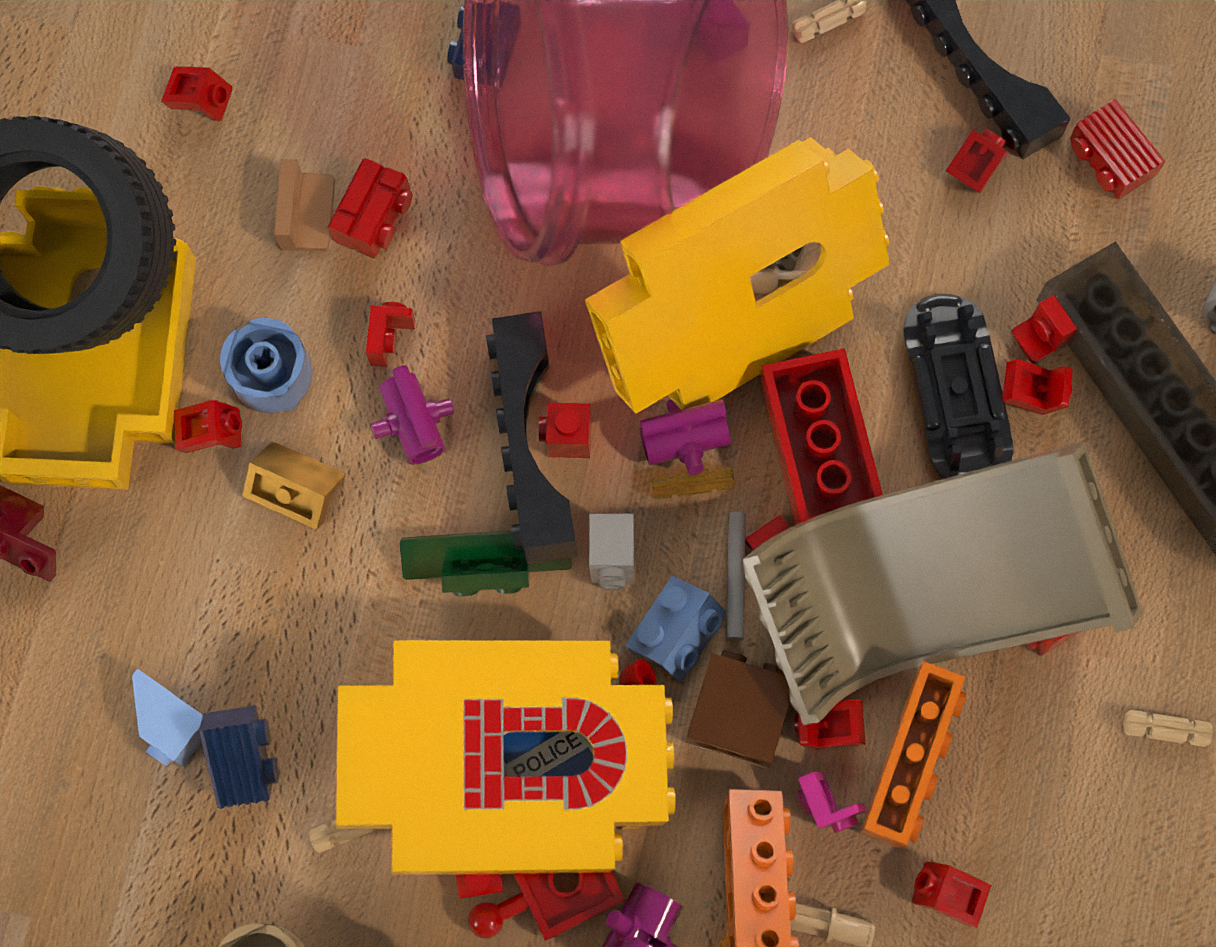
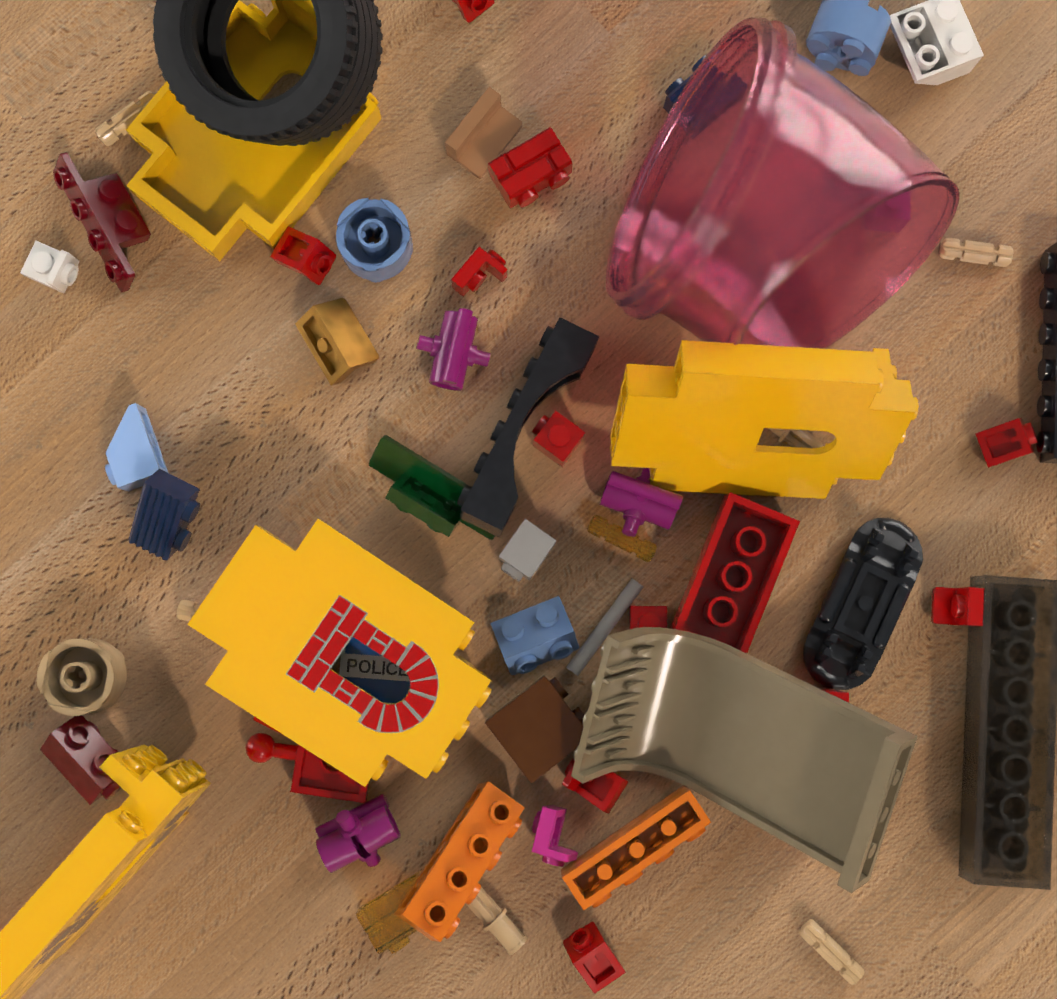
camera: 25 degrees right, 10 degrees up
(637, 674) = (482, 654): red hinge -> none
(1037, 387) = (922, 644): red bracket -> none

